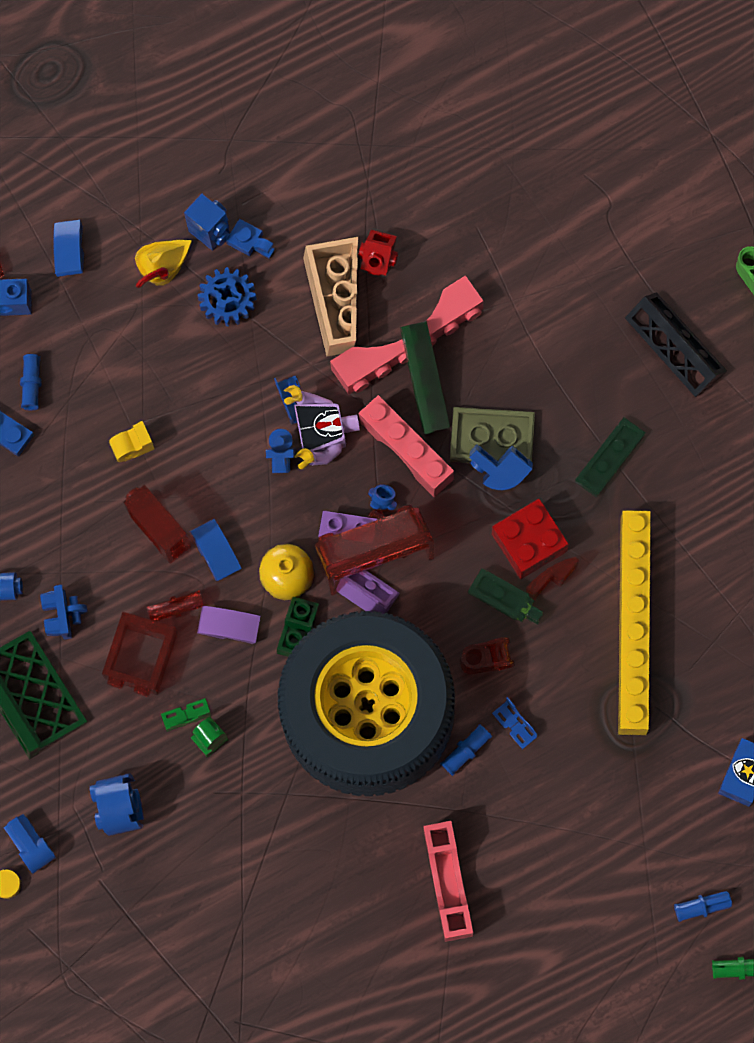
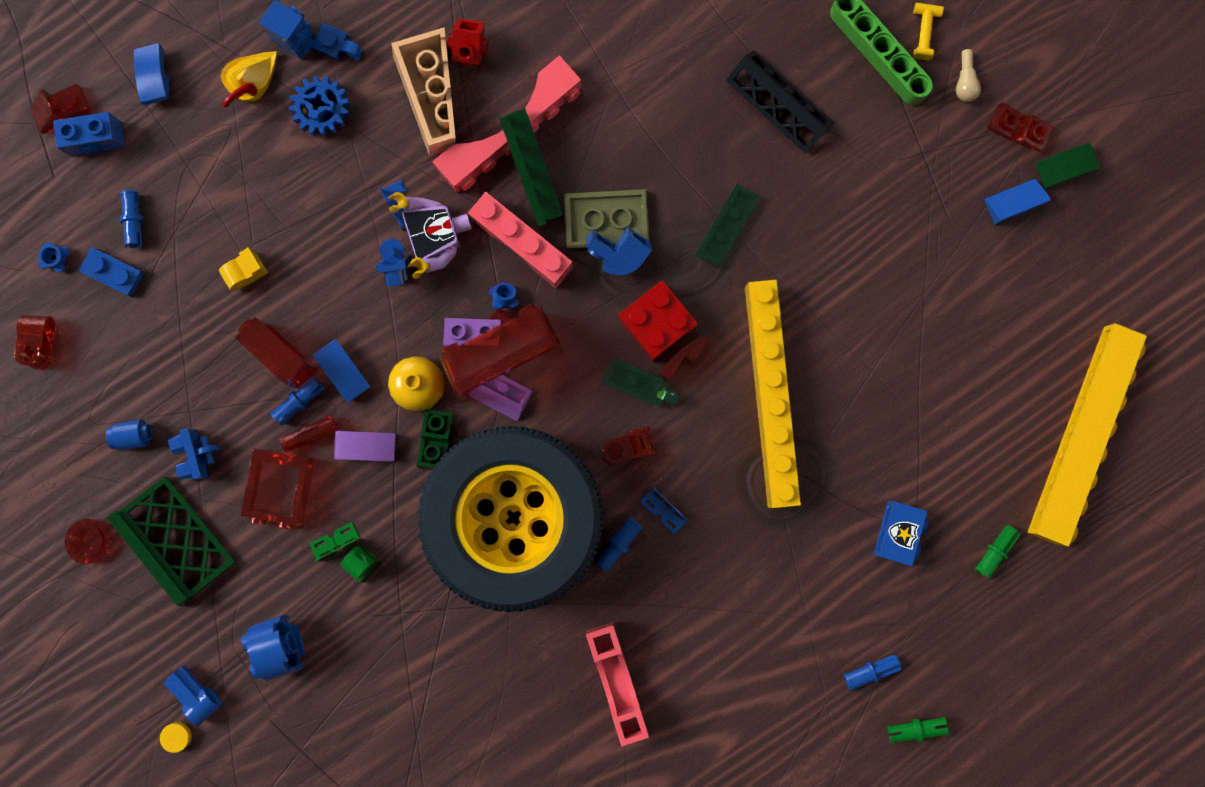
camera: 10 degrees left, 10 degrees up
(168, 573) = (297, 400): none -> blue pin

